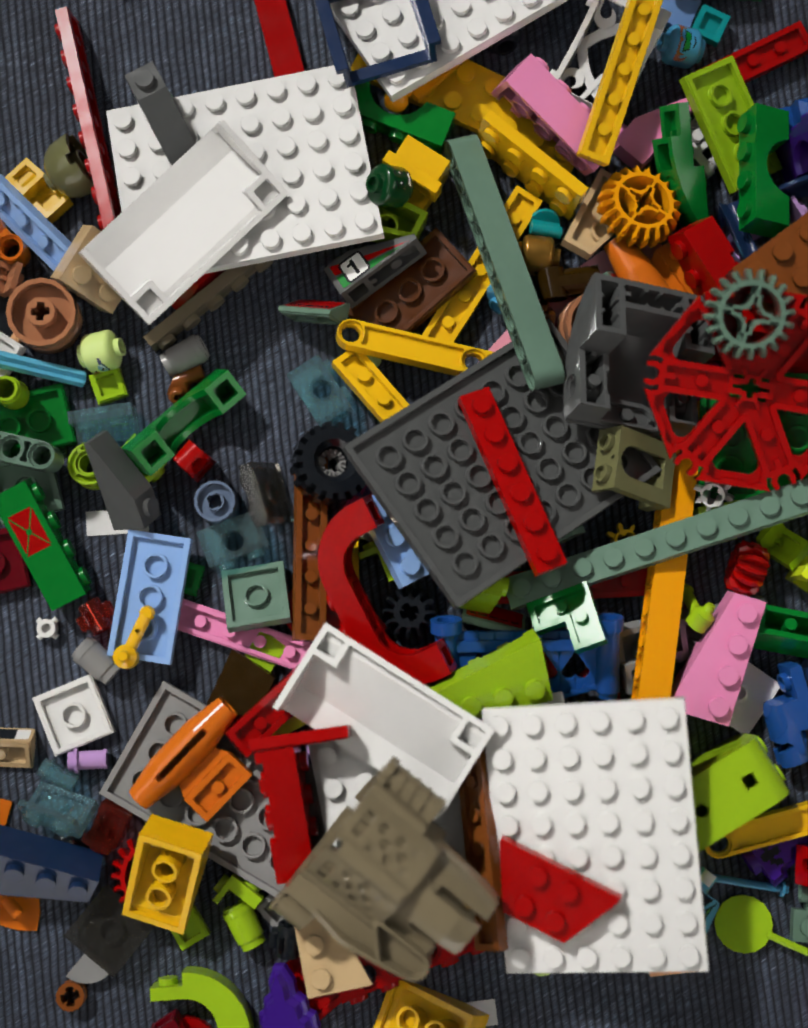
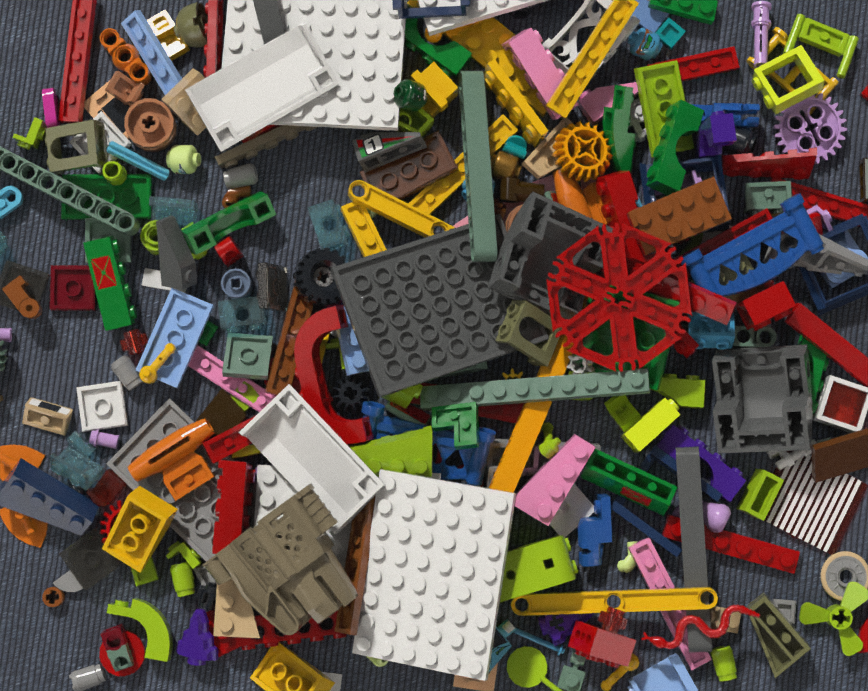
camera: 20 degrees right, 0 degrees up
(47, 628) = (98, 342): white piece -> none
(108, 386) = (182, 184): lime tile -> none
(299, 738) = (253, 458): red tile -> none
(316, 311) = (339, 168): sand green slope -> none
(512, 481) = (441, 320): red plate -> none
(549, 893) = (392, 603): red wing -> none
(747, 568) = (592, 422): red gear -> none
(752, 299) = (636, 228): sand green gear -> none

